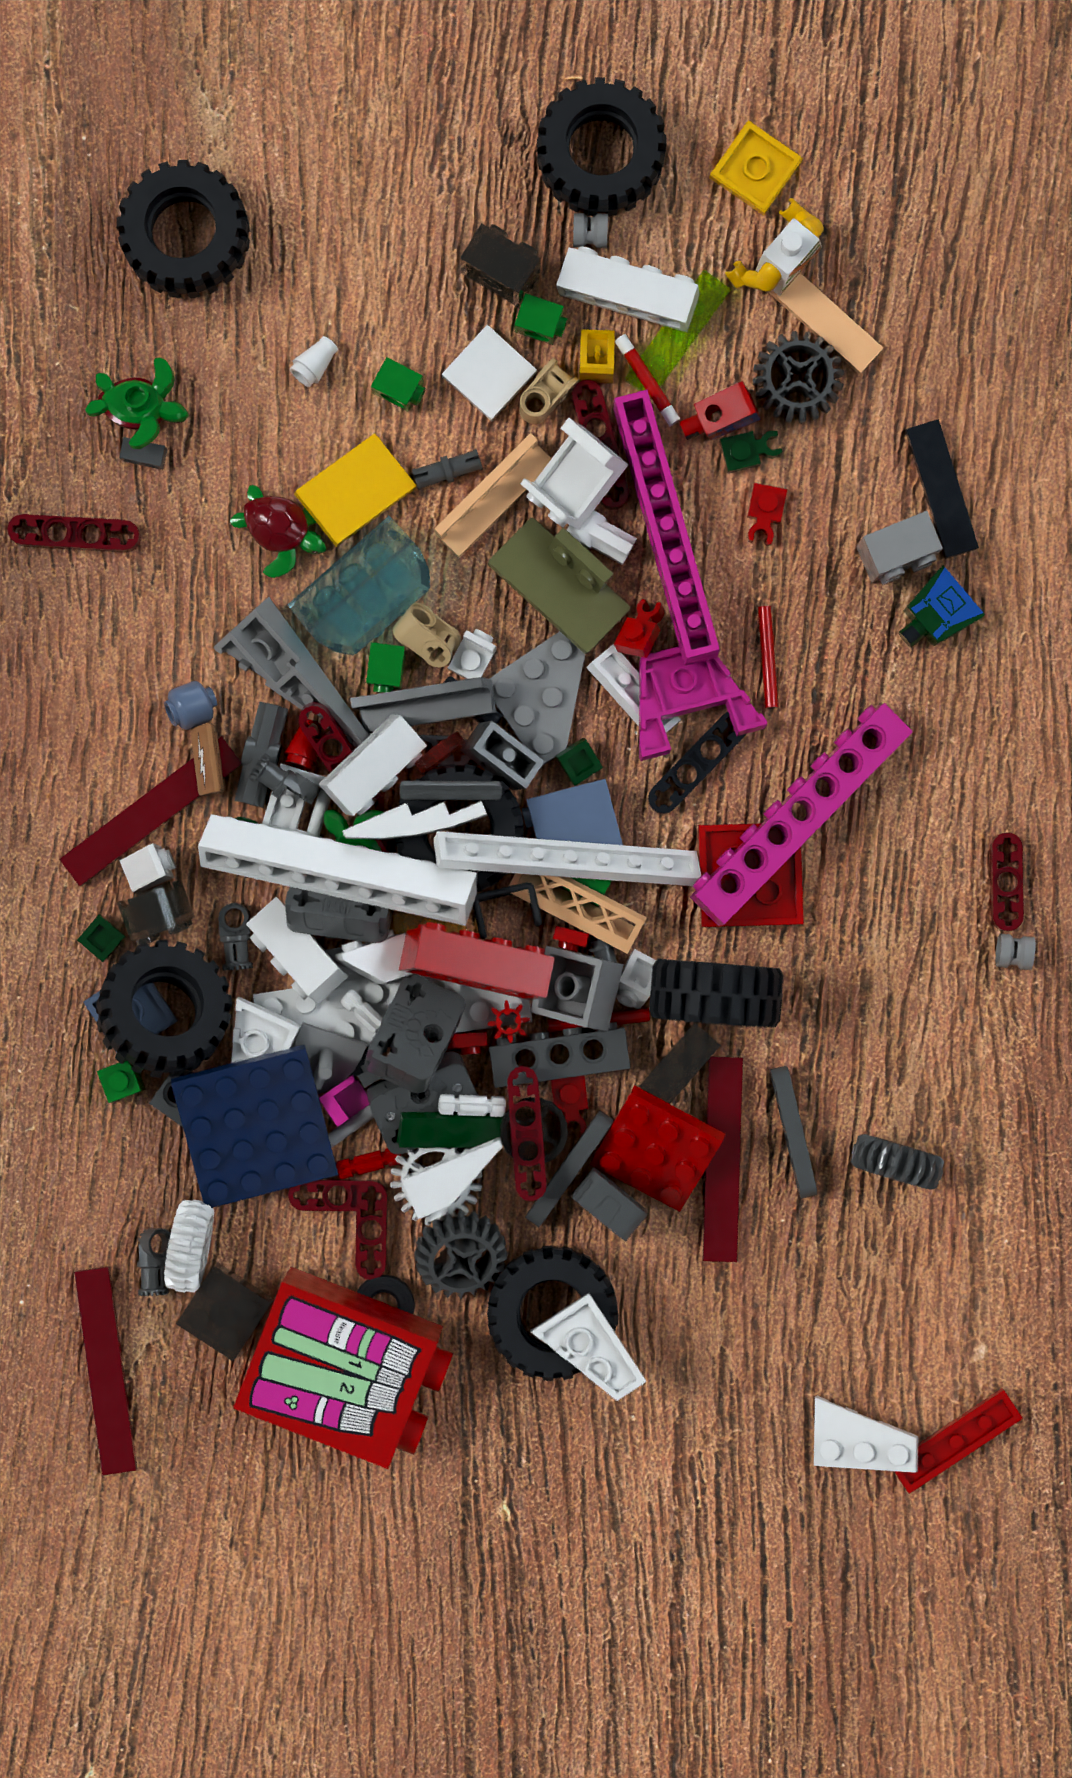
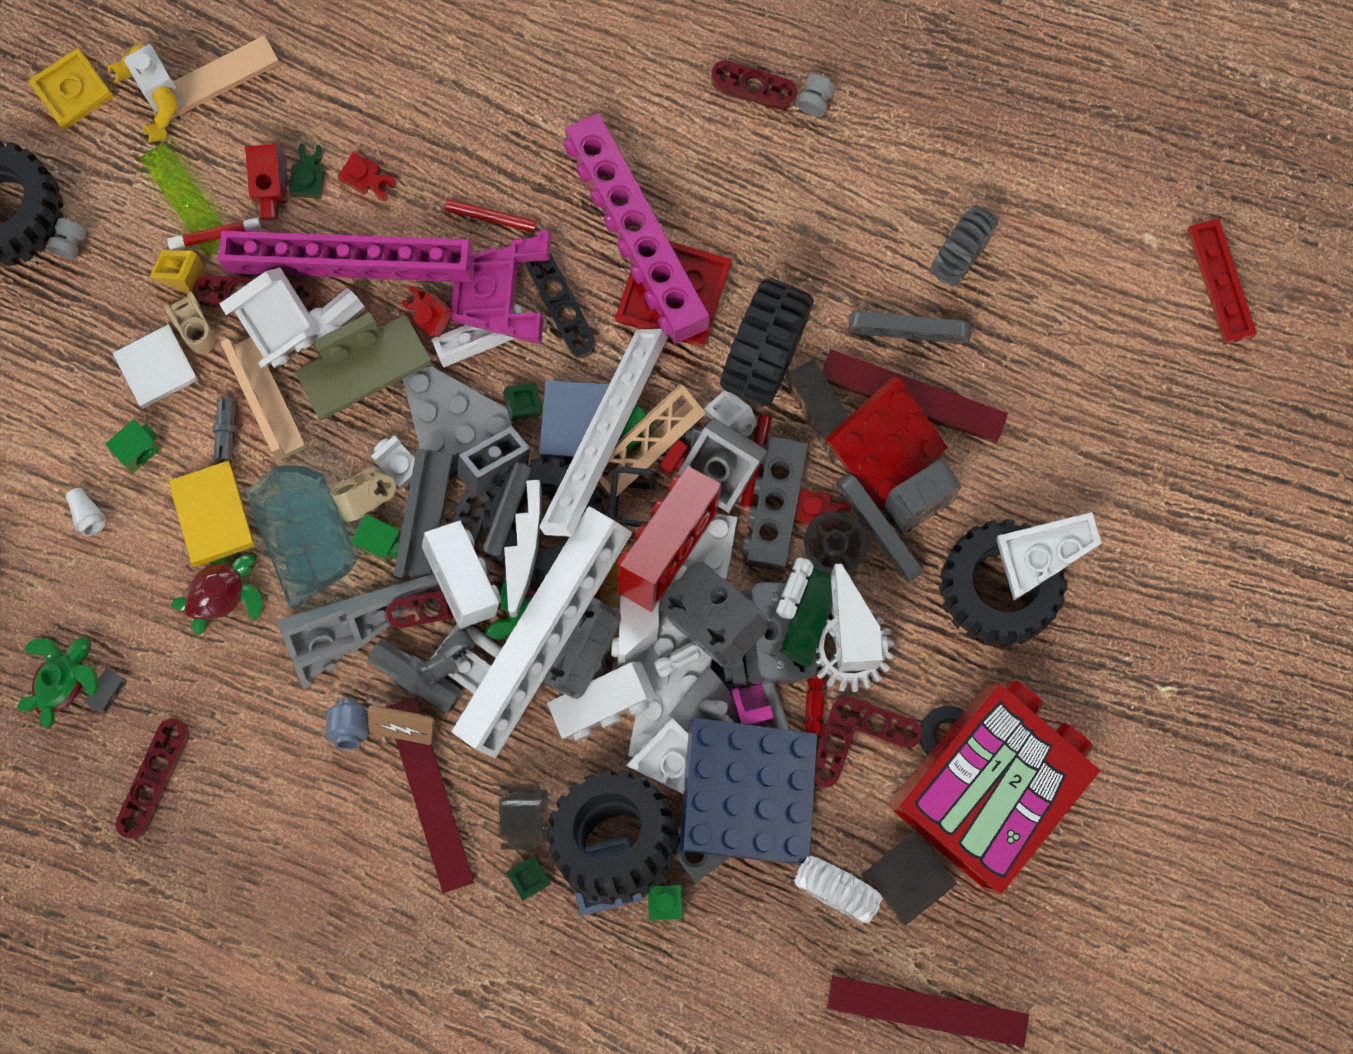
camera: 70 degrees left, 10 degrees down
(148, 867) = (479, 811): white slope -> none
(152, 1263) = (842, 931): dark grey connector -> none
(235, 936) = (570, 753): dark grey connector -> none
(300, 751) = (423, 638): red cone -> none
(440, 752) = (471, 512): clear red piece -> none
(458, 1269) = (915, 628): dark grey gear -> none
(468, 1043) = (738, 575): red plate -> none
(500, 264) = (64, 320): clear smoke brick -> none
(507, 1012) = (734, 525): red gear -> none
(526, 1133) = (837, 541): dark red beam -> none
(540, 319) = (126, 306): green brick -> none
(628, 289) = (129, 222): white brick -> none
(807, 389) = (251, 87): dark grey gear -> none
(858, 1442) = (1198, 360): white wing -> none
(899, 547) = (439, 72): light grey brick -> none
(939, 611) = (503, 61): torso -> none
(941, 489) = (401, 29): black tile -> none

